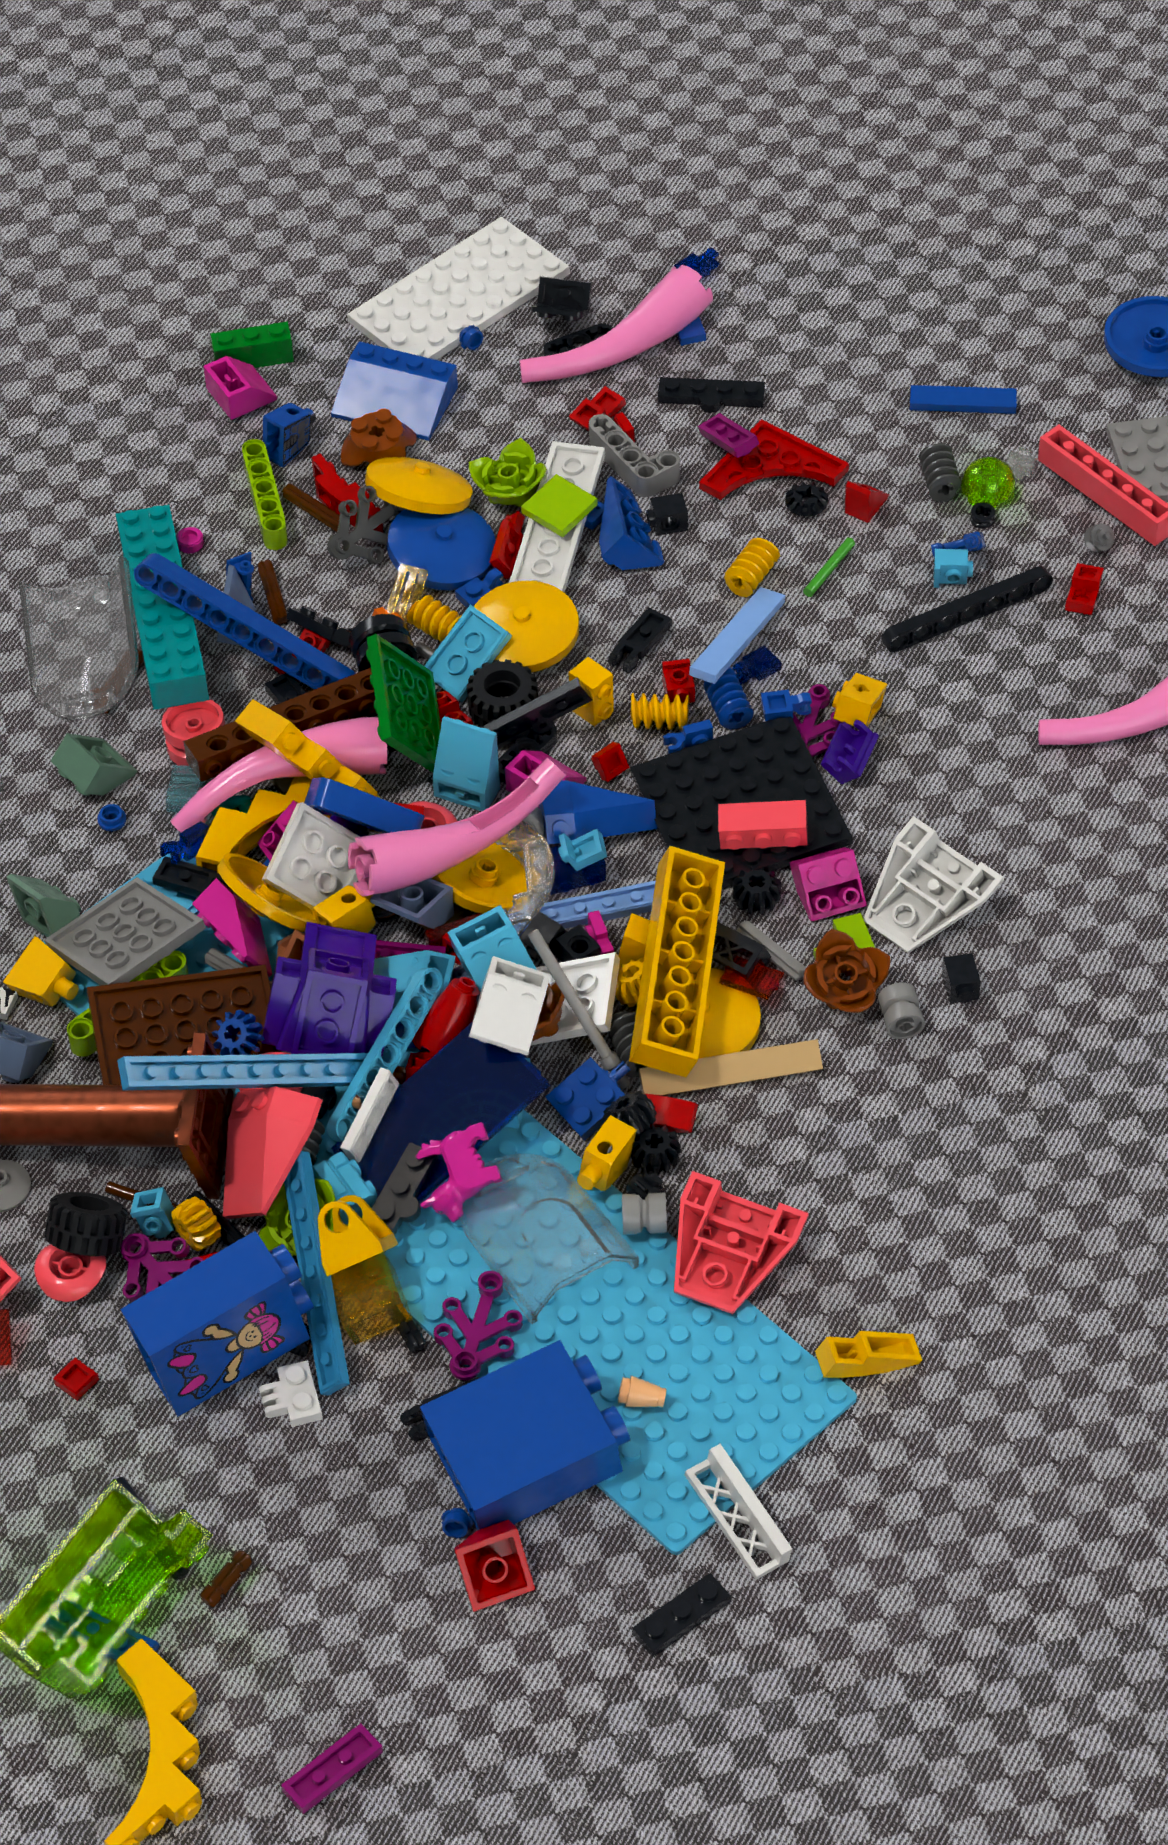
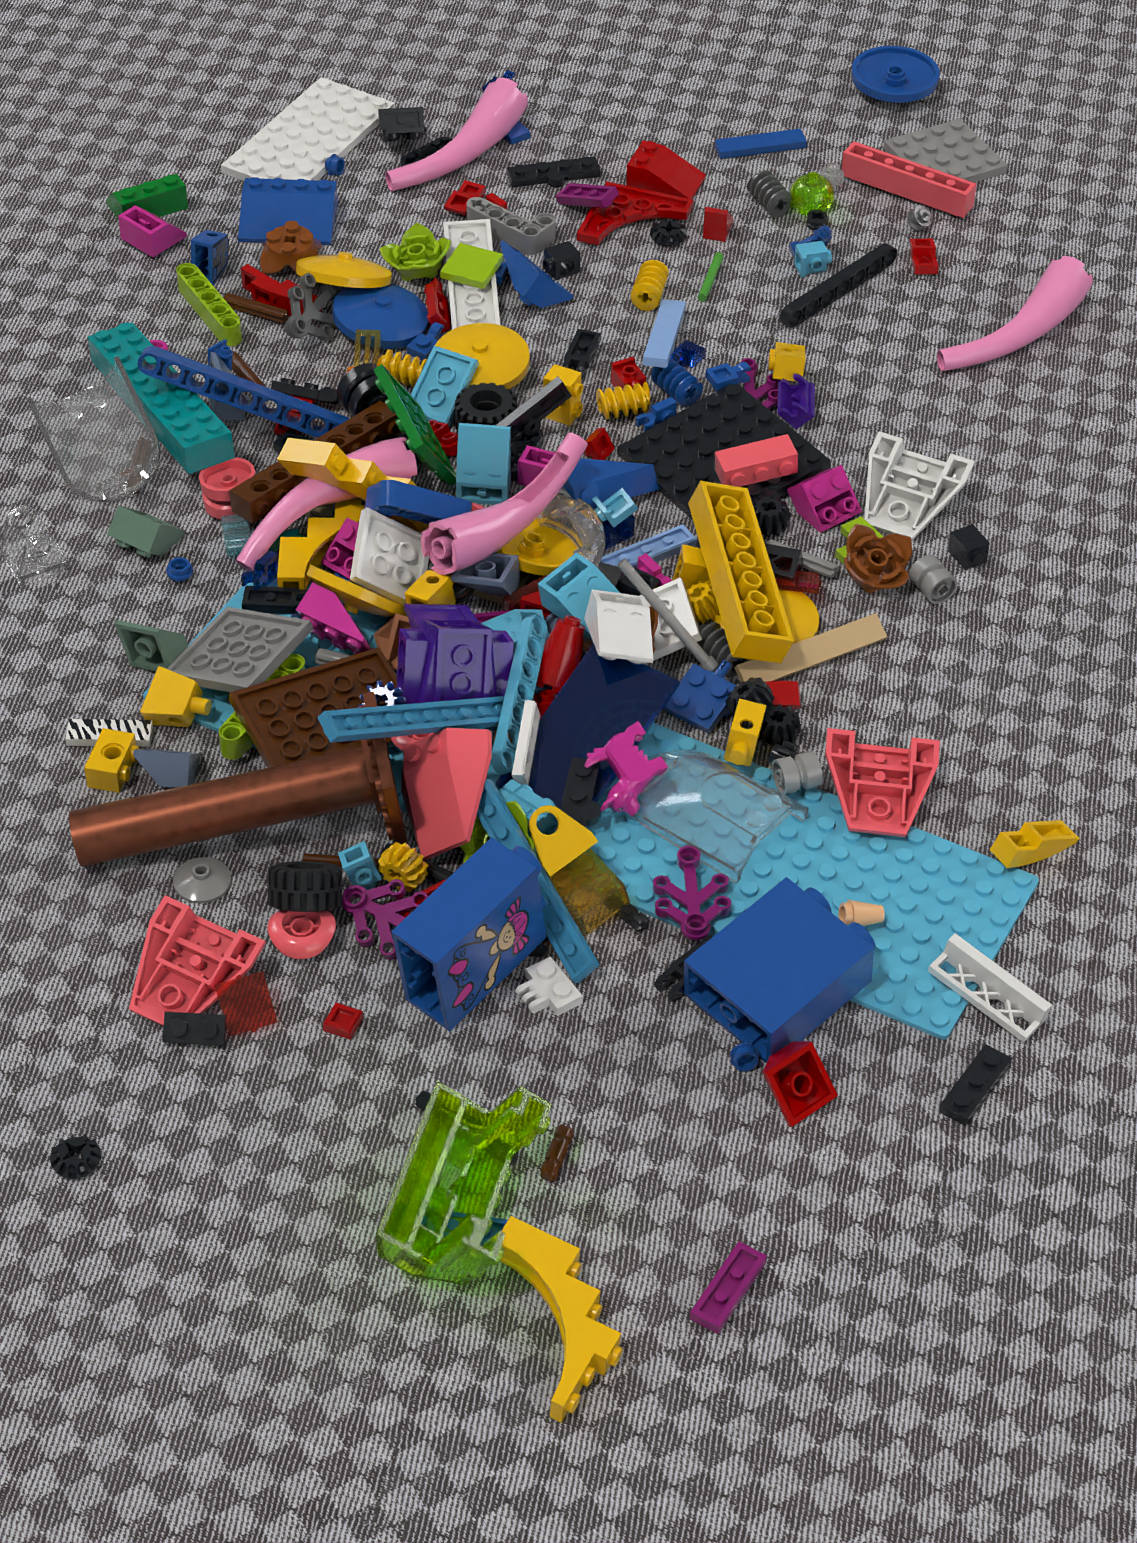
camera: 20 degrees left, 5 degrees down
(831, 419) = (663, 171): none -> red slope

